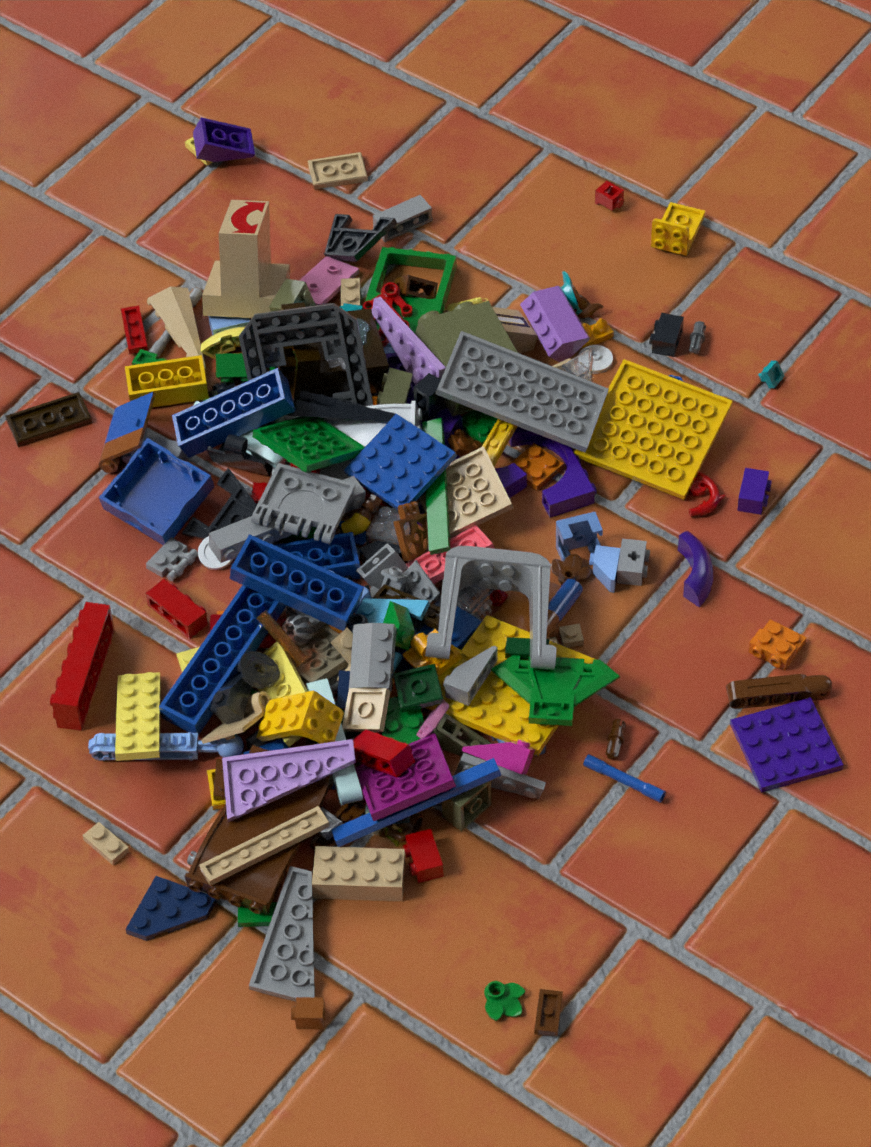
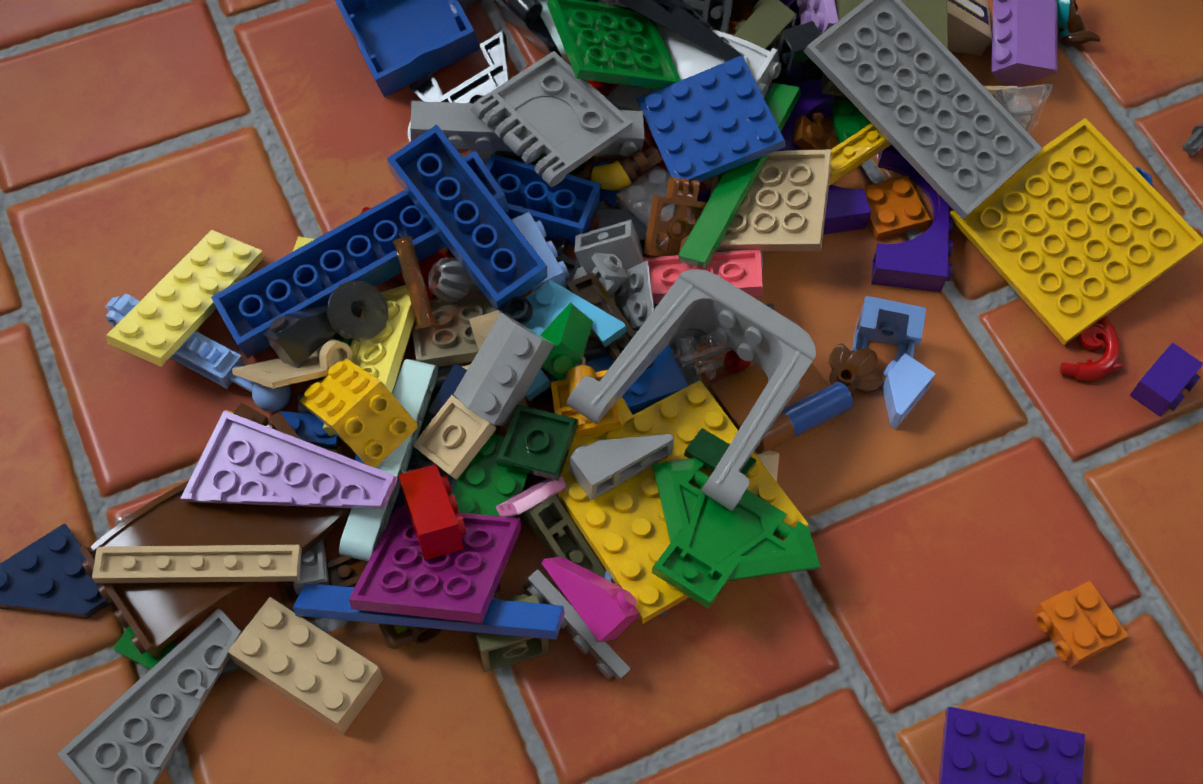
camera: 25 degrees right, 10 degrees up
(82, 666) = (172, 198): red brick -> none
(106, 843) = (43, 444): tan plate -> none
(167, 556) = (373, 110): light grey plate -> none
(177, 608) = (338, 178): red brick -> none
(424, 856) = (406, 686): red brick -> none
(571, 635) = (801, 463): tan plate -> none
(597, 332) = (1072, 70): light orange tile -> none
(602, 358) = (1060, 105): white piece -> none
(615, 739) = (769, 649): reddish brown axle -> none
(631, 562) = (941, 400): light grey brick -> none
(645, 788) = (768, 749): blue piece -> none
(667, 334) = (1164, 112): black brick -> none
(700, 580) = (1020, 474): dark purple brick -> none
(777, 690) = (1043, 698): reddish brown piece -> none

